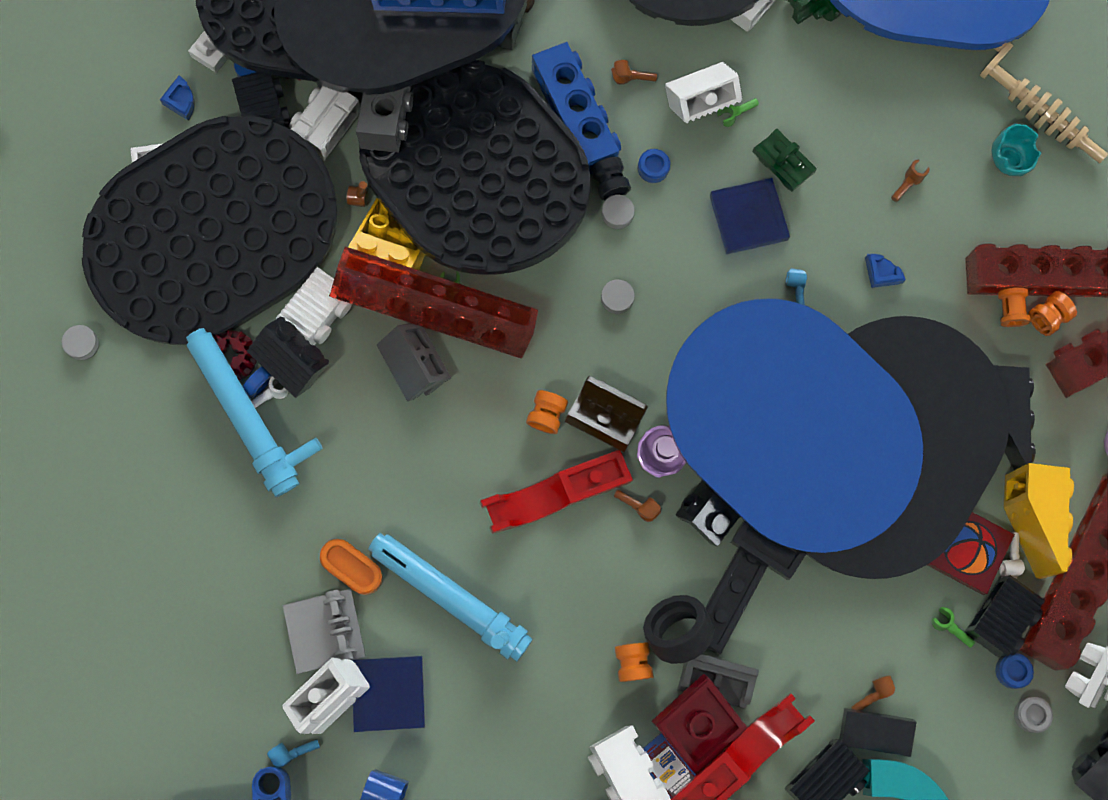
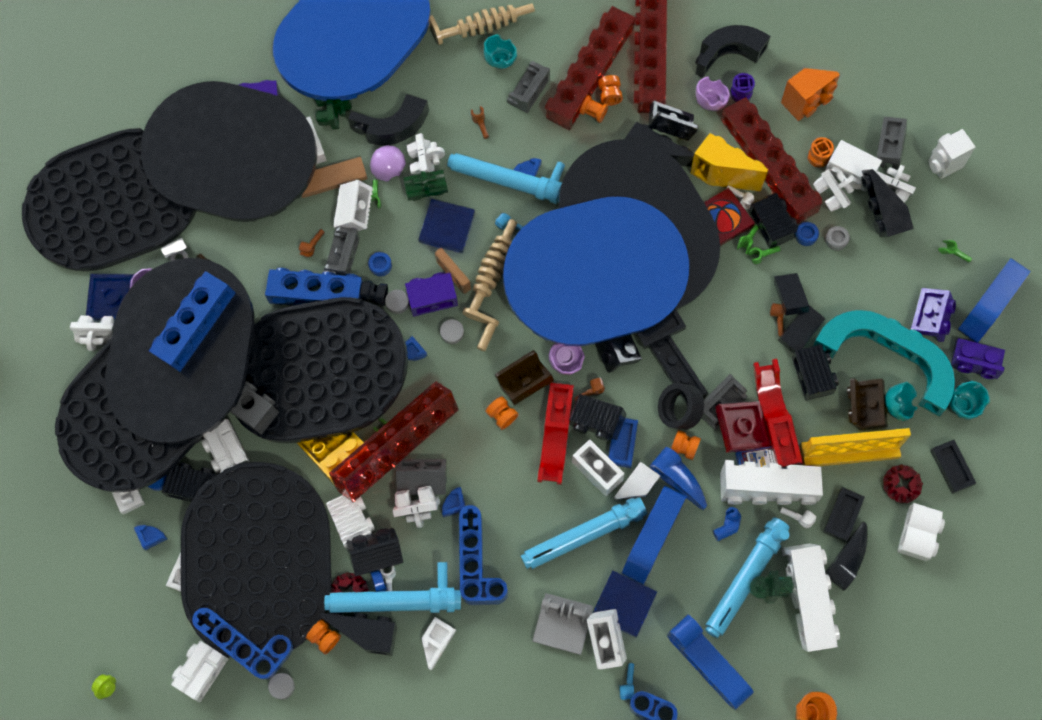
camera: 50 degrees left, 5 degrees down
(46, 240) = (198, 671): none -> white brick
(103, 260) = (238, 639): none -> blue beam
(159, 356) = (323, 636): none -> orange wheel
(186, 403) = (371, 635): none -> black slope
(225, 489) = (436, 640): none -> white tile
(351, 481) = (476, 555): none -> blue beam
(351, 566) = (531, 586): orange tile -> none
(357, 194) = (289, 454): dark orange hand -> none
(369, 377) = (426, 502): none -> white hips
(404, 418) = (453, 503): none -> blue tile
(495, 683) = (653, 535): none -> blue beam
(539, 567) = (597, 468): none -> white brick
(552, 629) = (638, 483): none -> white tile
(562, 776) = (730, 526): none -> blue arm
(567, 263) = (414, 350): none -> blue tile
(590, 671) = (678, 476): none -> blue piece
(595, 580) = (622, 449): none -> blue tile
(606, 532) = (597, 417): none -> black brick
(641, 115) = (342, 251): none -> dark grey hinge
(649, 245) = (431, 294): none -> dark purple brick
(693, 253) = (449, 266): none -> medium nougat tile
(703, 302) = (489, 274): none -> tan piece
(734, 51) = (335, 175): none -> medium nougat tile
(787, 101) = (387, 162): none -> lavender hair
(825, 140) = (427, 152): none -> white hips
(838, 86) = (394, 128): none -> black arch
(867, 299) = (542, 187): none -> medium azure cylinder
(916, 694) = (791, 294): none -> black tile
(955, 597) = (747, 241): none -> bright green hand
(993, 214) = (529, 87): none -> dark grey hinge
(1059, 412) = (671, 121): none -> black bracket

